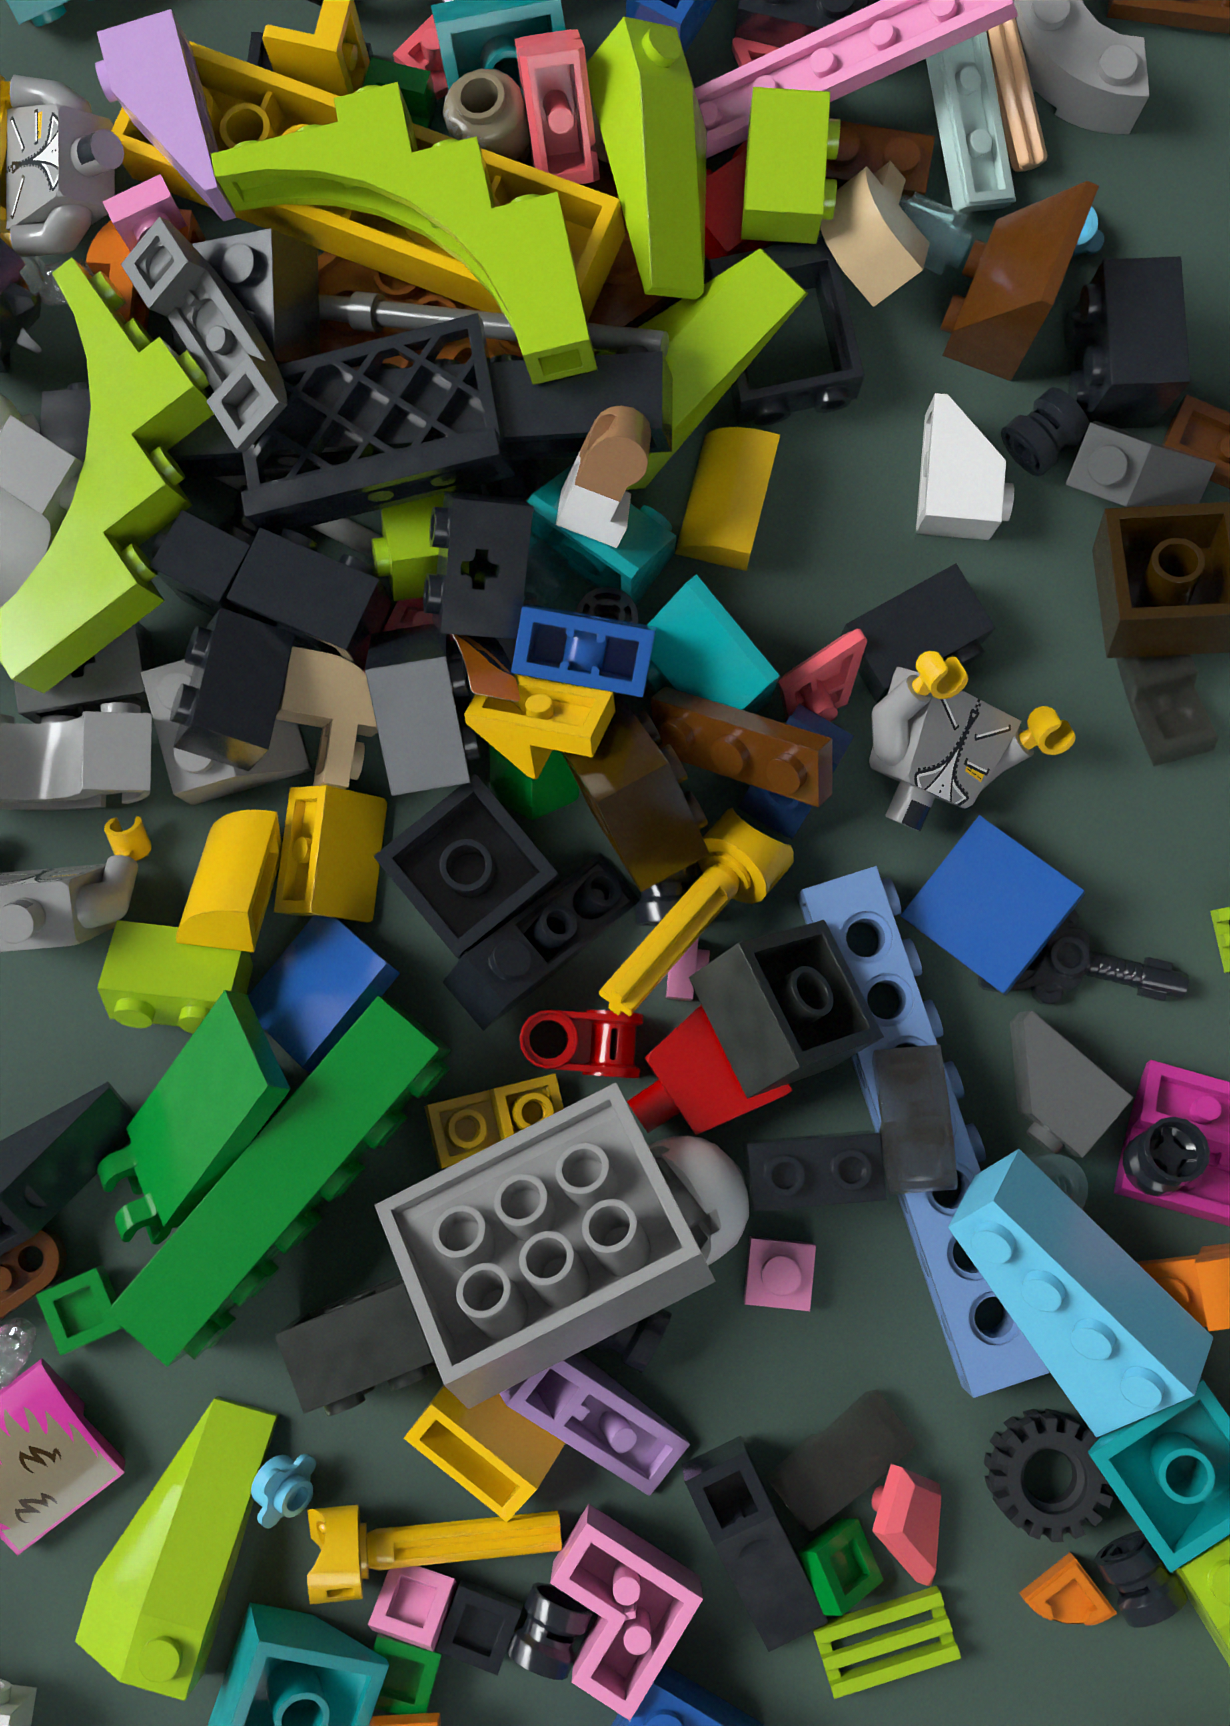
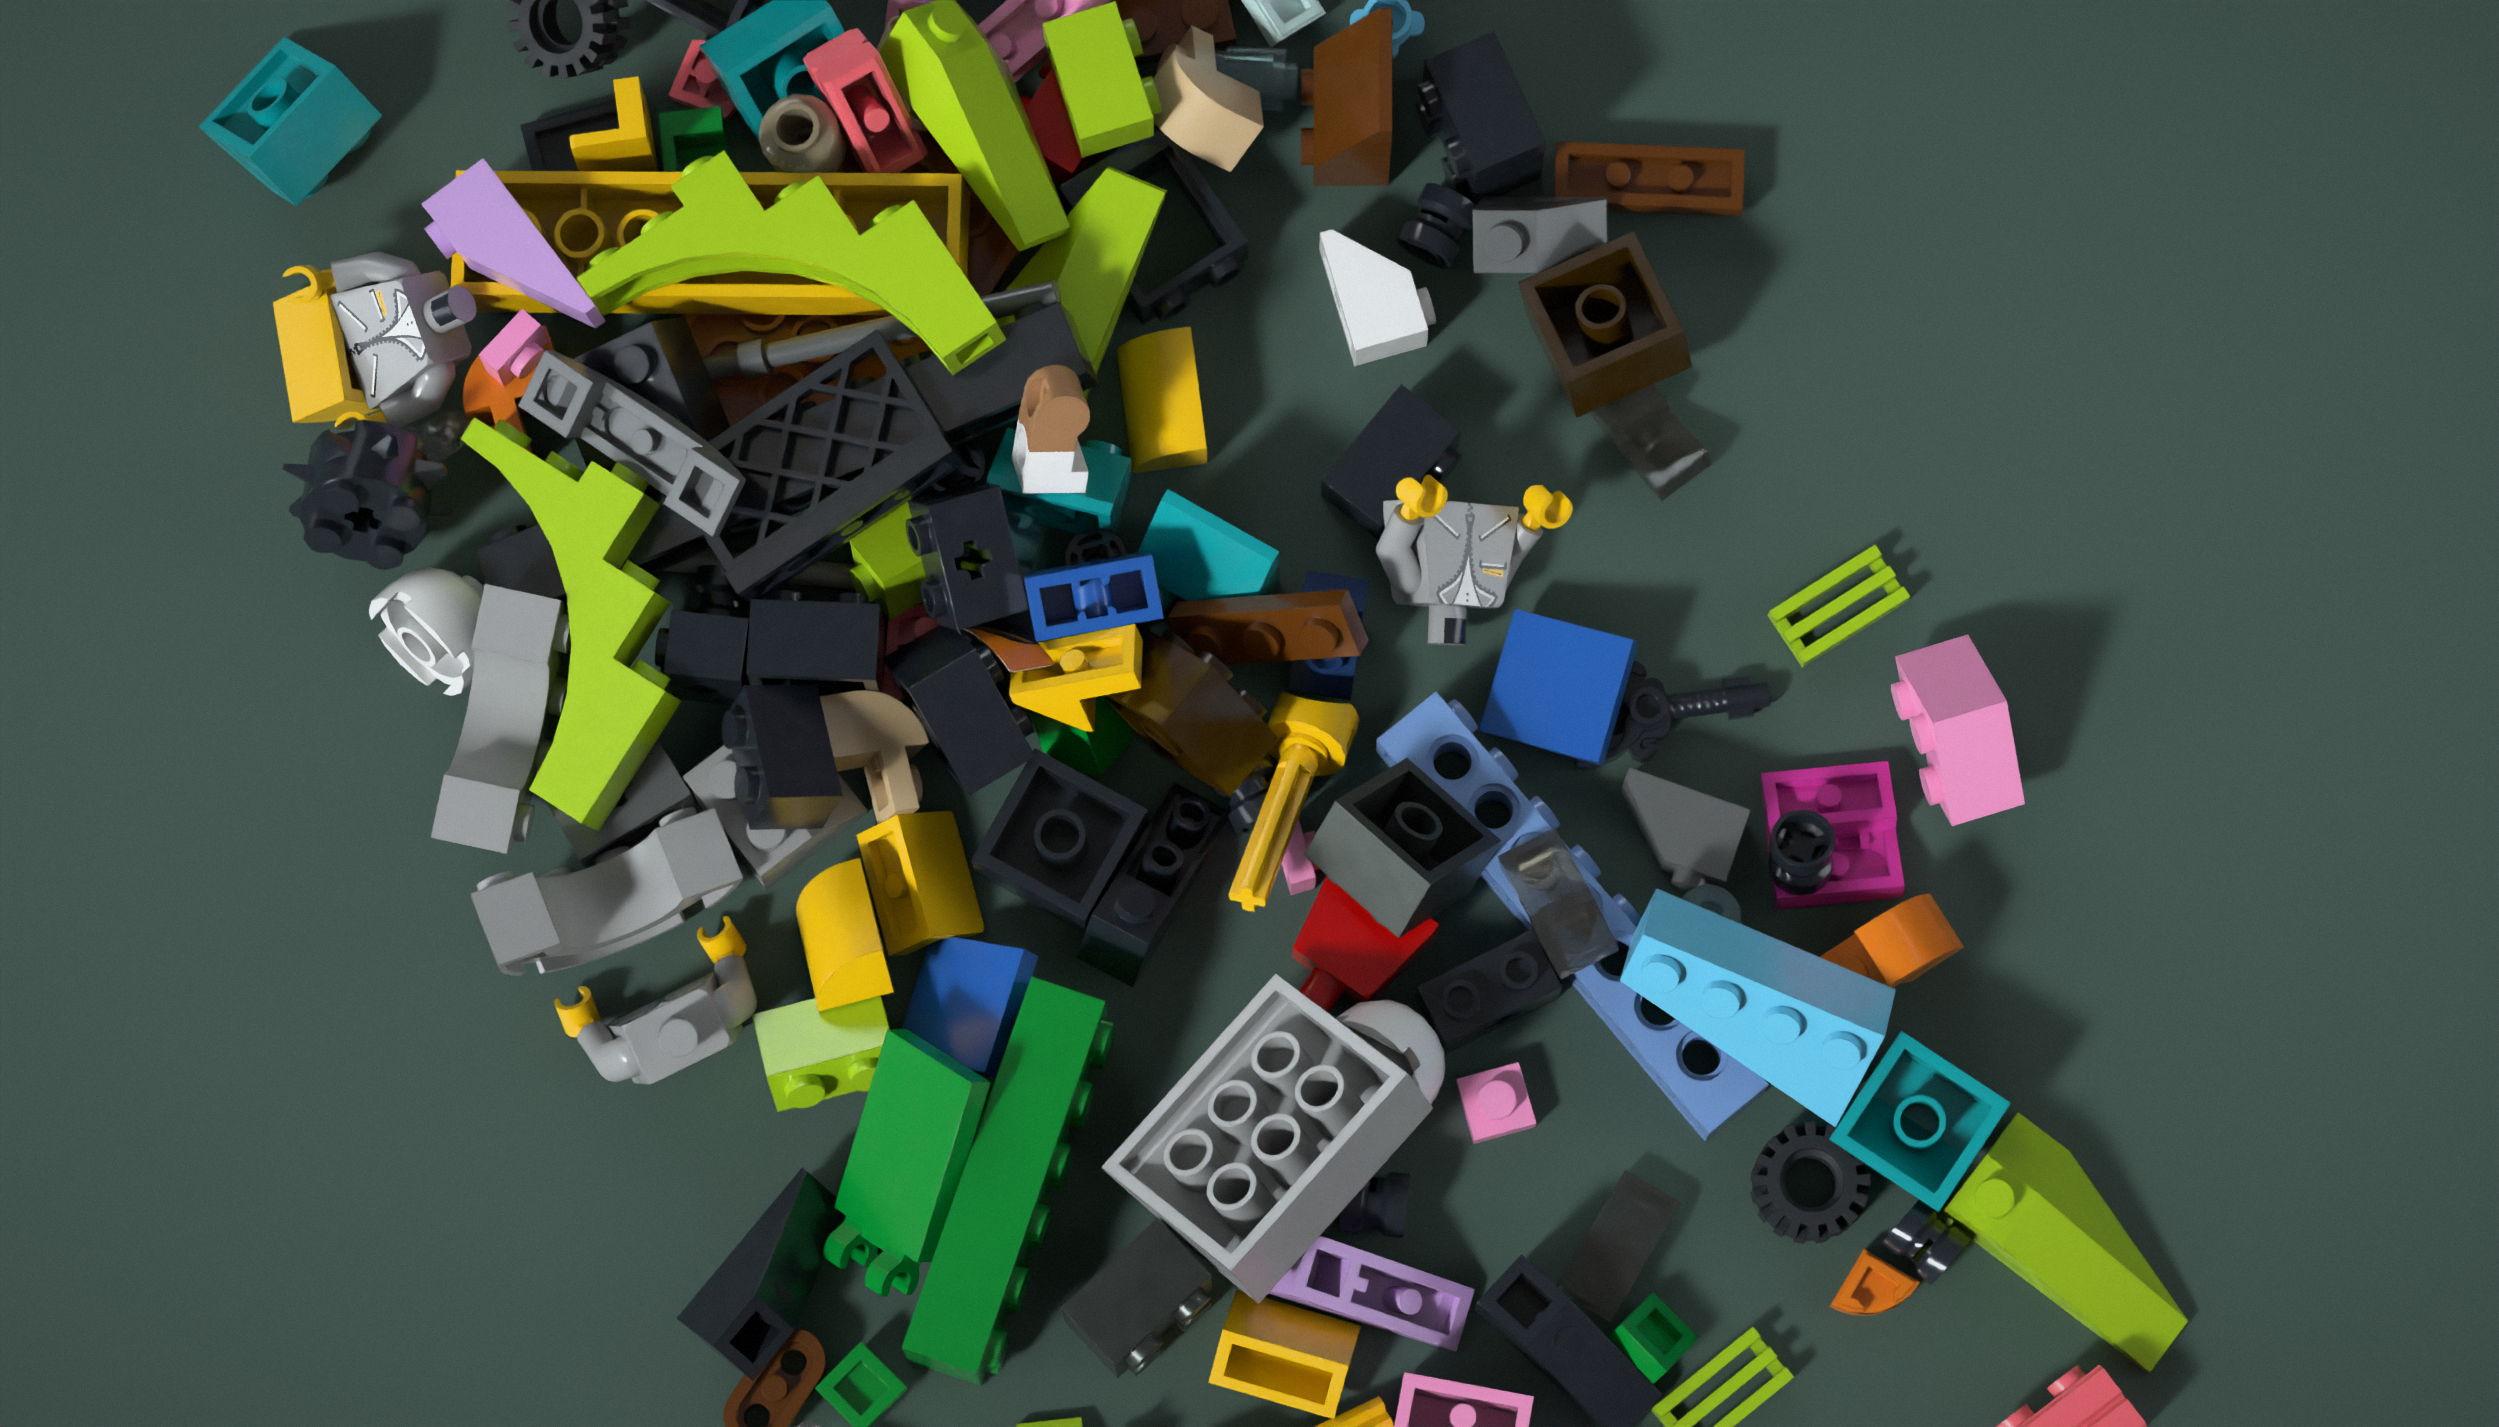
camera: 25 degrees left, 5 degrees down
(485, 1118) = (1153, 1073): yellow slope -> none
(588, 1042) = (1232, 958): red piece -> none
(825, 678) = (1322, 537): coral piece -> none
(909, 1521) = (1700, 1275): coral piece -> none

